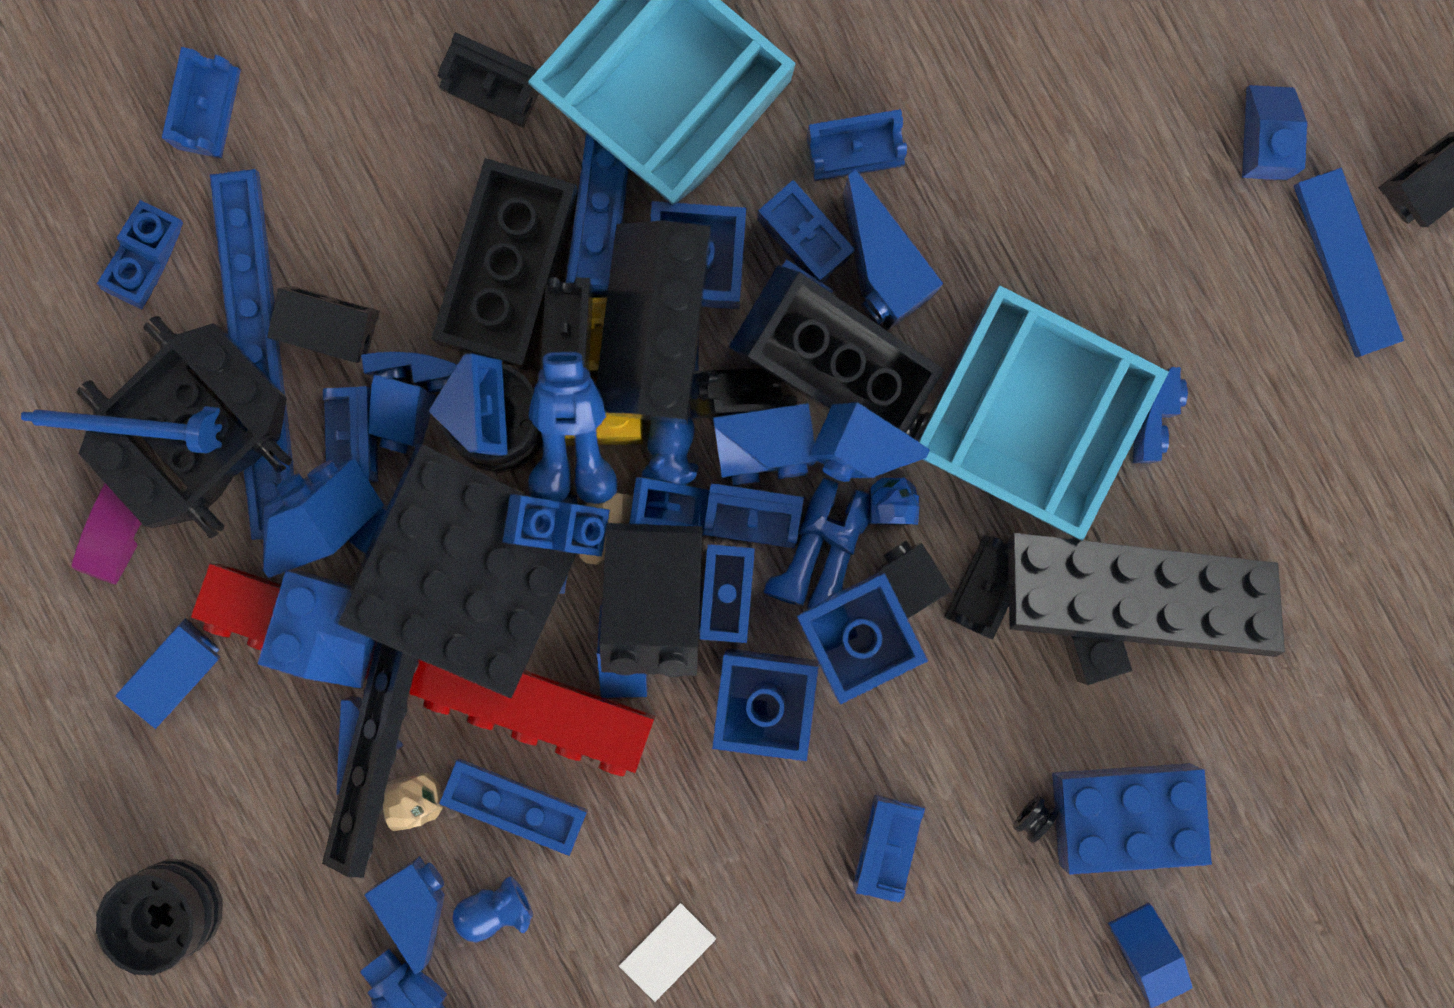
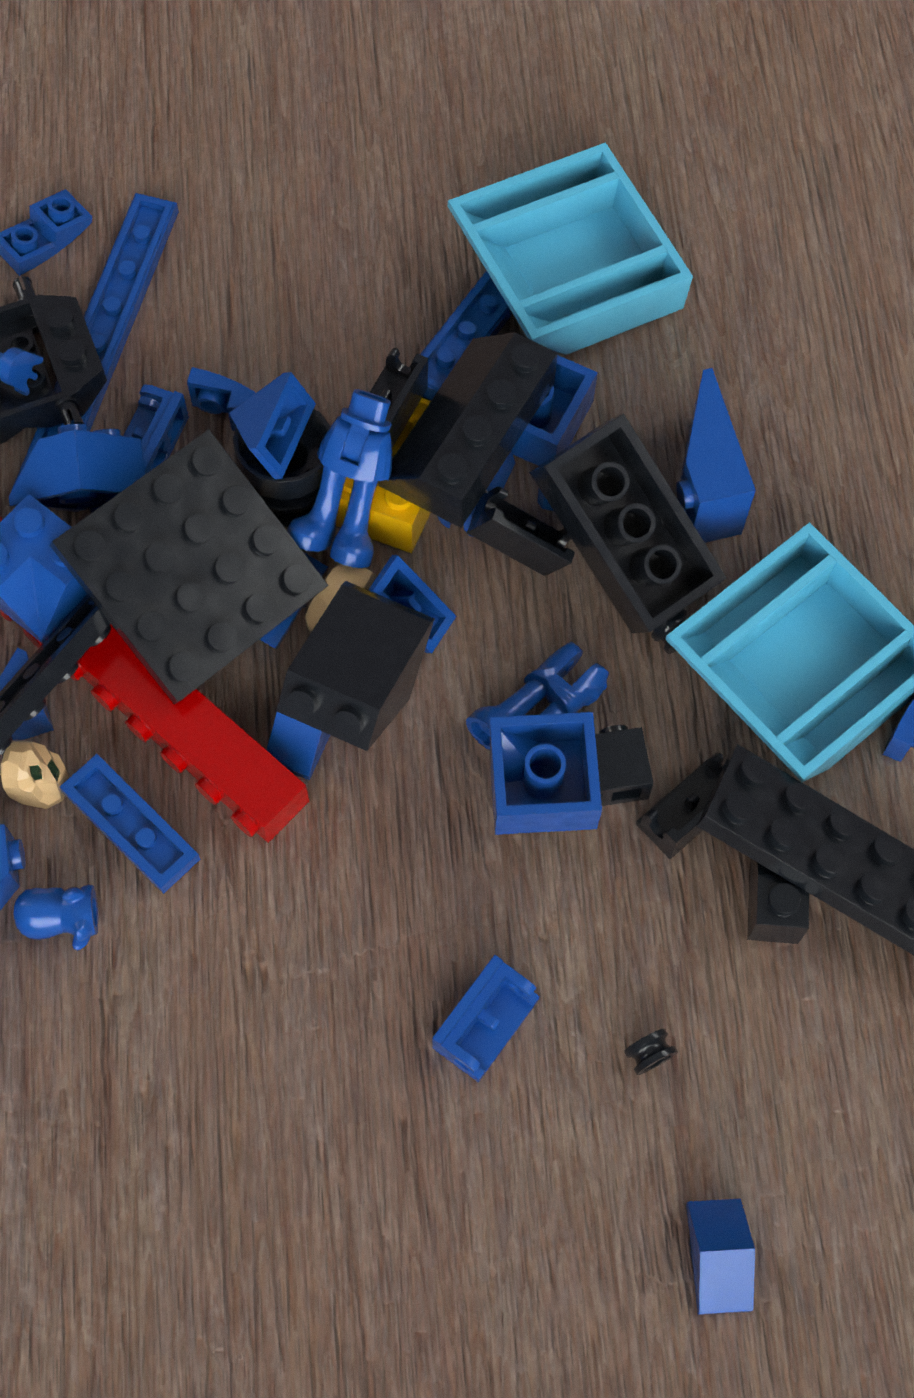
camera: 20 degrees right, 20 degrees down
(201, 103) = (156, 137): blue hinge -> none
(322, 323) = (170, 335): black hinge -> none
(398, 413) = (200, 408): blue slope -> none
(488, 80) = (414, 208): black hinge -> none
(504, 263) = (357, 329): black brick -> none
(555, 525) = (295, 559): blue slope -> none
(667, 952) = (212, 1036): white sticker -> none
(669, 449) = (437, 555): blue animal -> none
(727, 593) = (430, 701): blue brick -> none
(753, 515) = (487, 647): blue hinge -> none
(765, 443) = (527, 578): blue slope -> none
(765, 704) = (424, 817): blue slope -> none
(804, 232) = (648, 415): blue hinge -> none
(857, 144) = (738, 368): blue hinge -> none
(862, 444) = (623, 598): blue slope -> none
(894, 502) = (627, 691): blue rock -> none
(1132, 818) = (753, 1089): blue brick -> none

